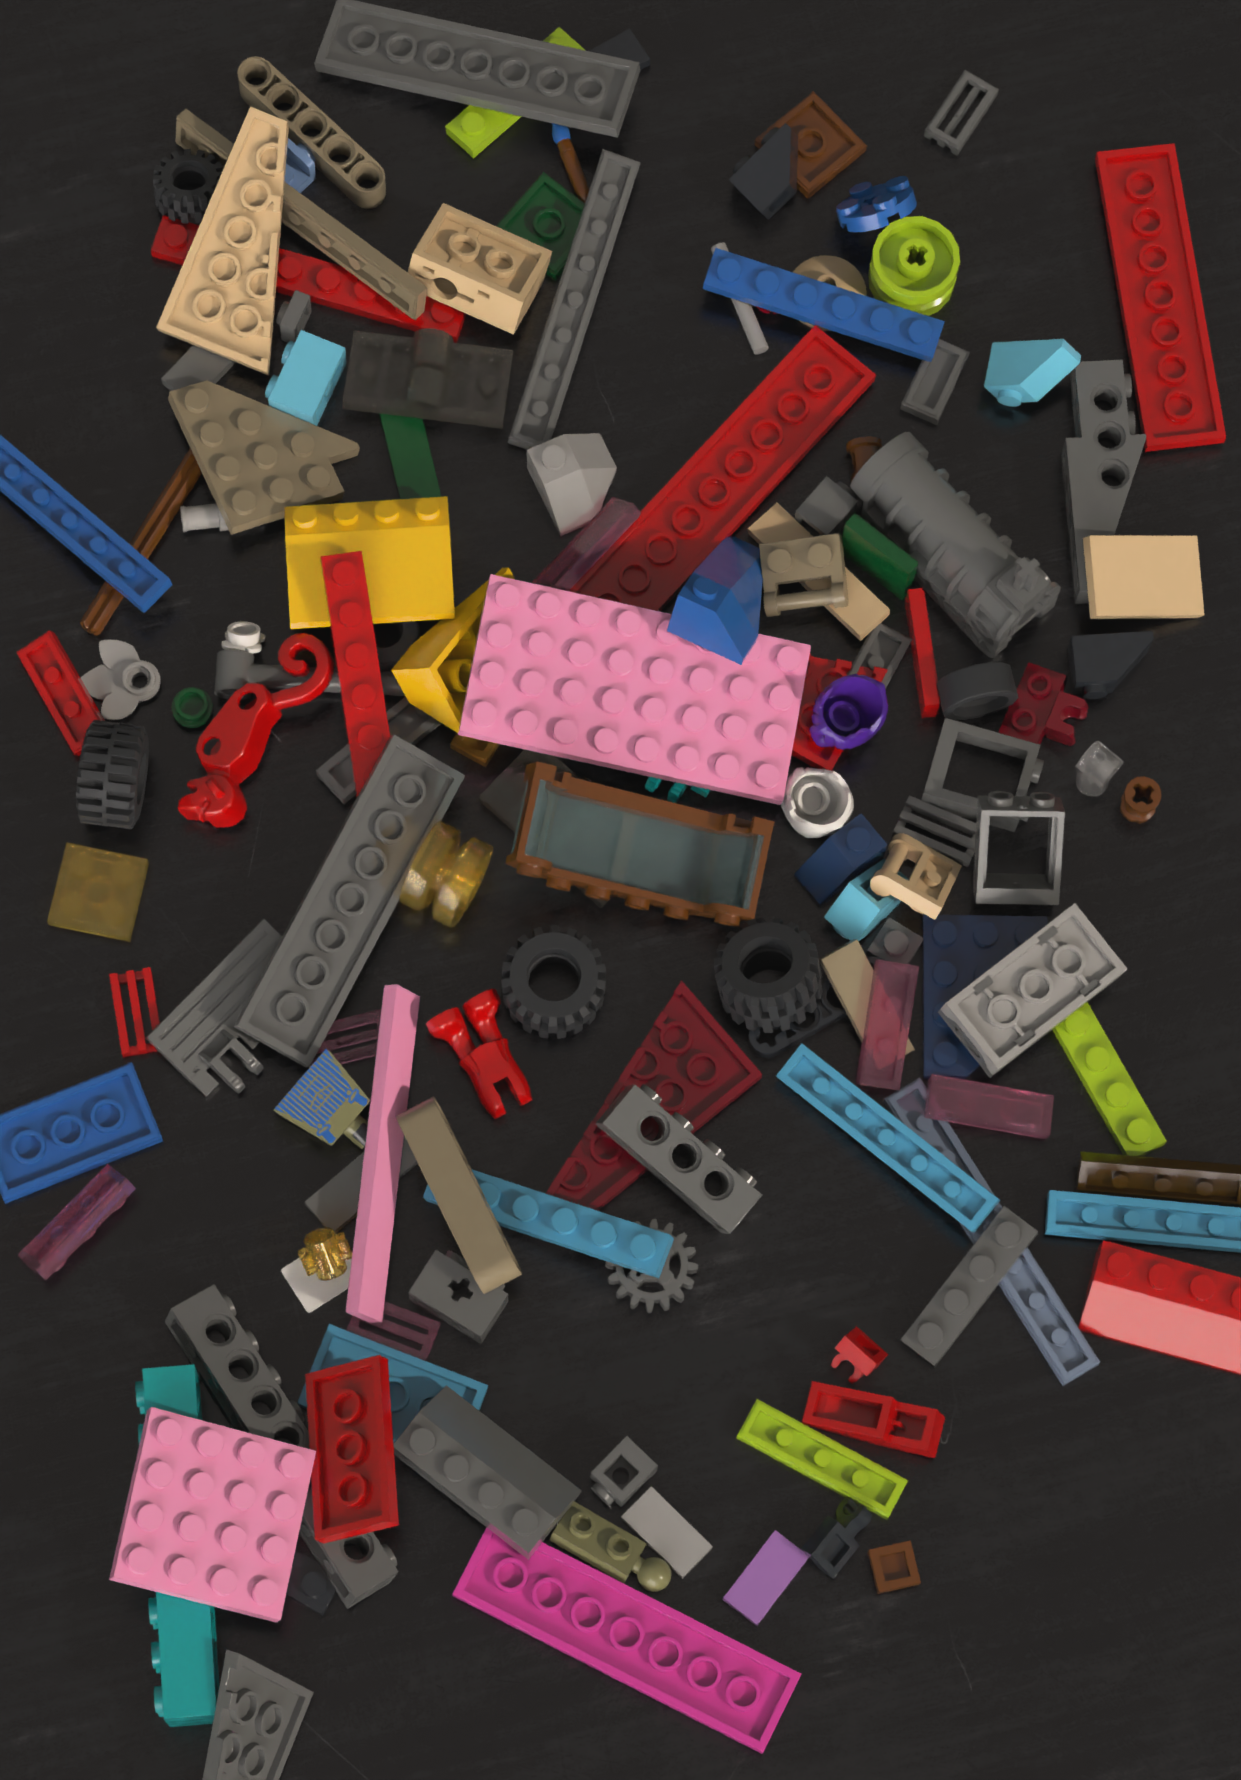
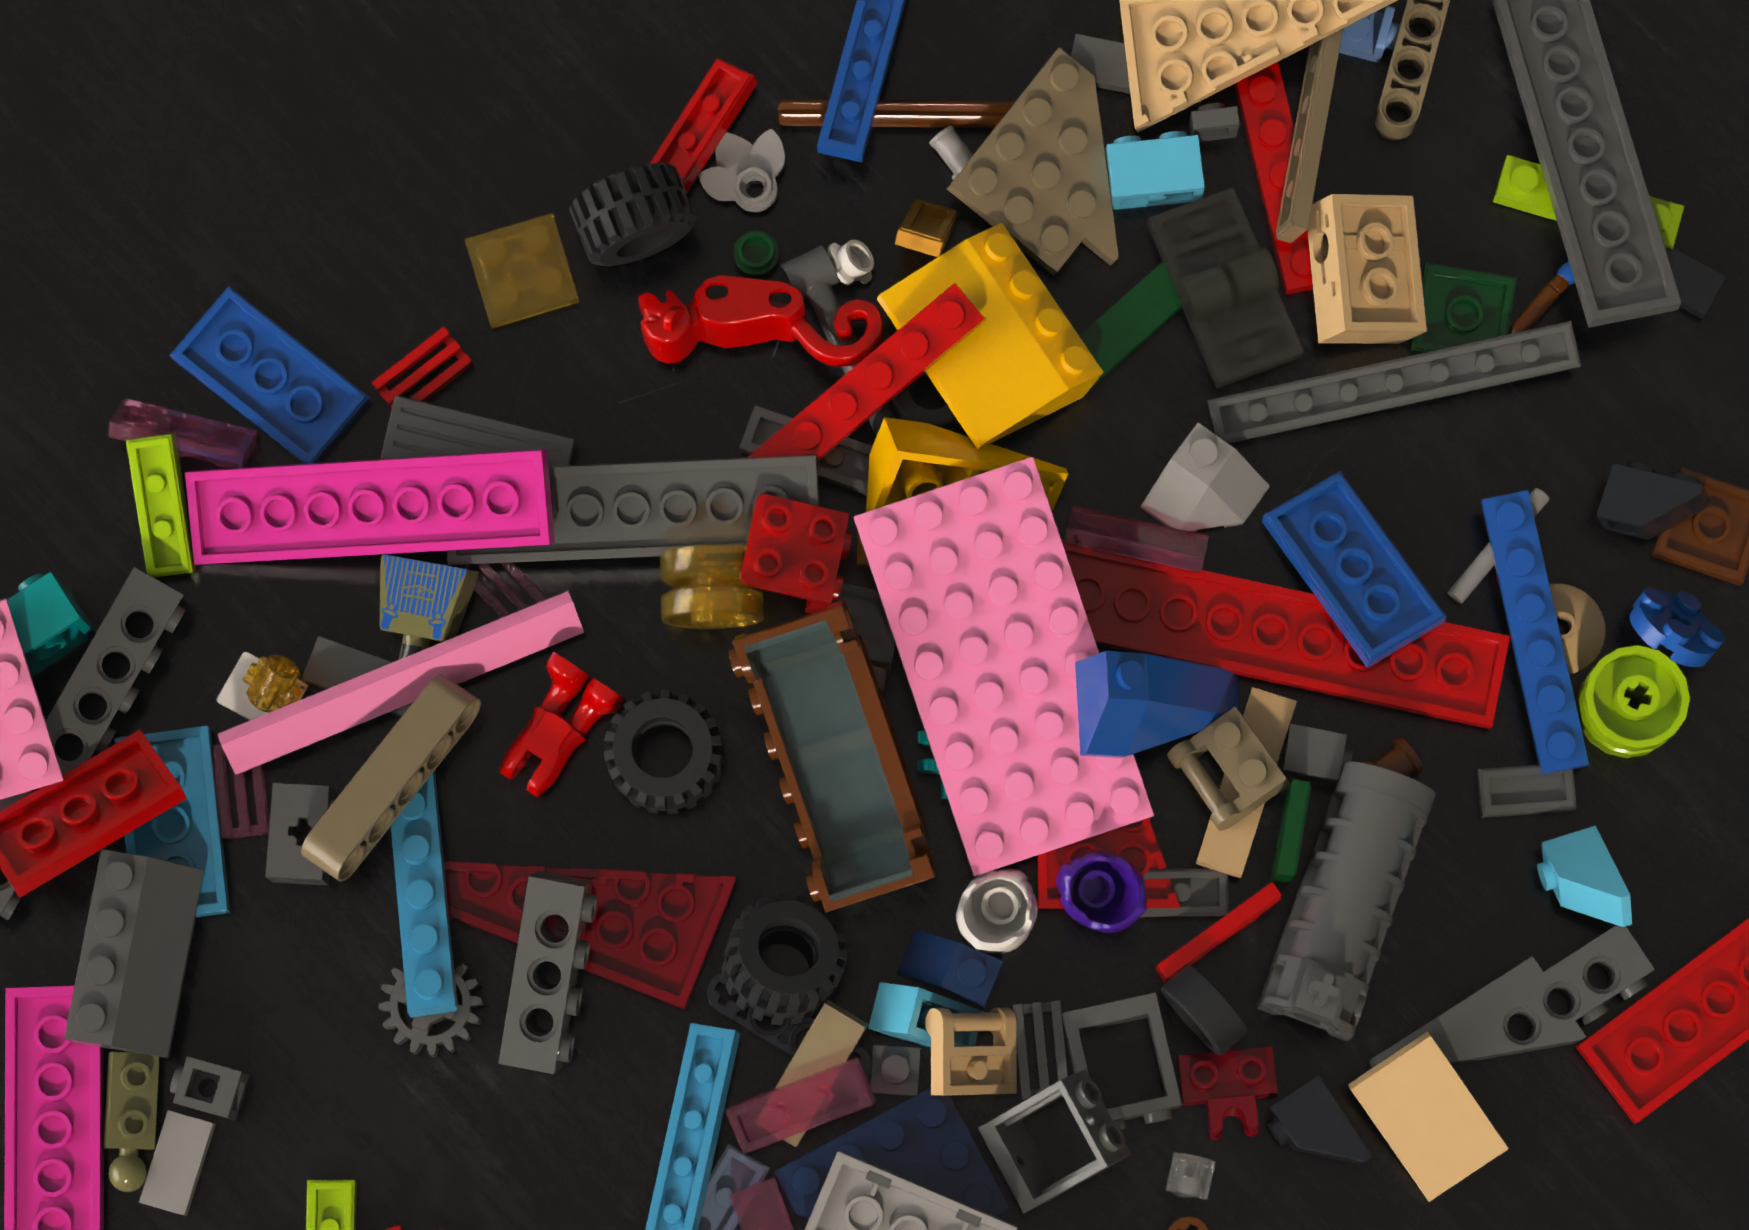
camera: 70 degrees right, 5 degrees up
(127, 1266) = (161, 505): none -> lime tile
(230, 1099) = (370, 507): none -> dark pink plate
(253, 565) = (926, 227): none -> pearl gold tile
(459, 790) = (796, 550): none -> red bracket
(700, 405) = (1353, 569): none -> blue tile

